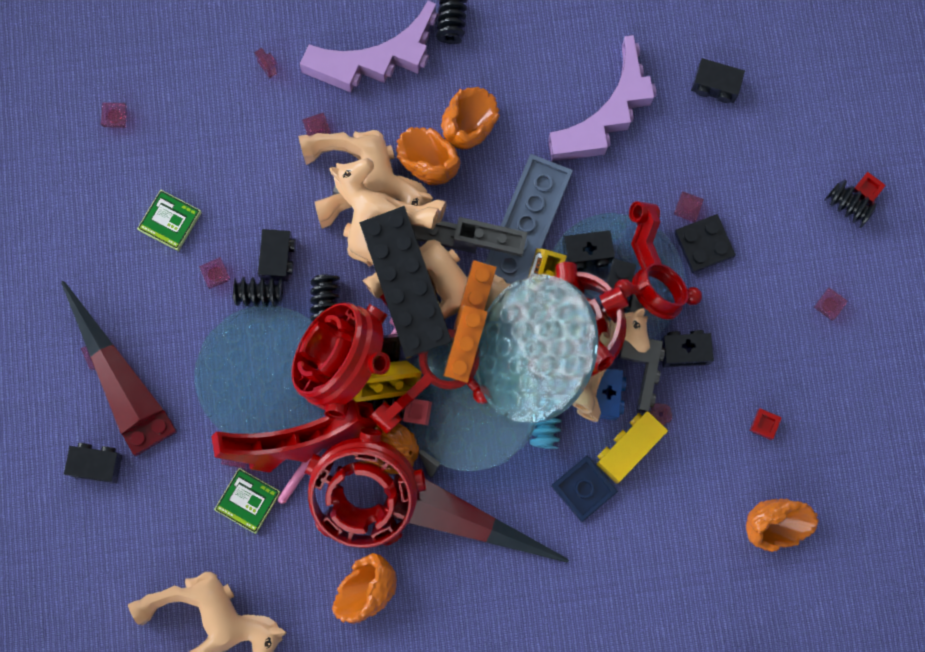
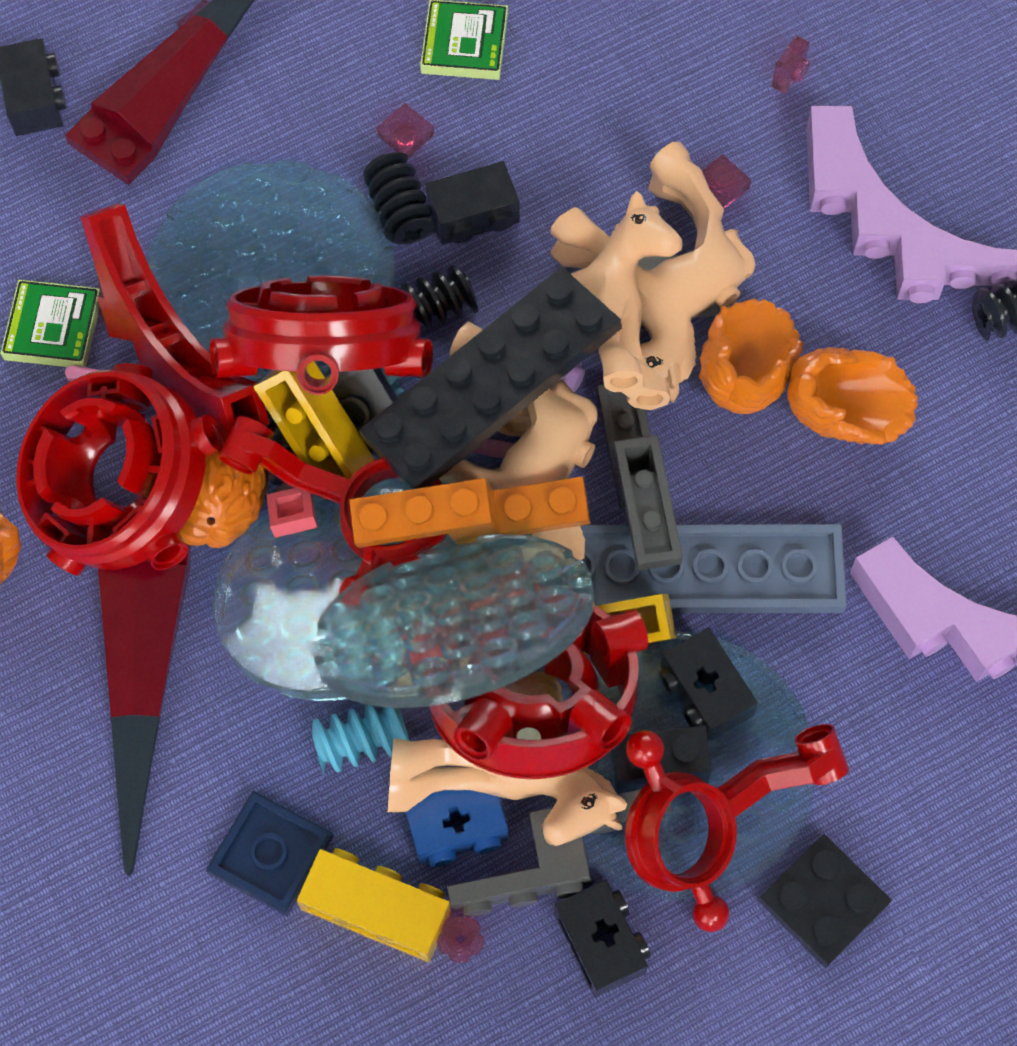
camera: 75 degrees right, 10 degrees down
(430, 463) = (213, 570): dark grey slope -> none
(688, 206) = (882, 843): clear pink plate -> none

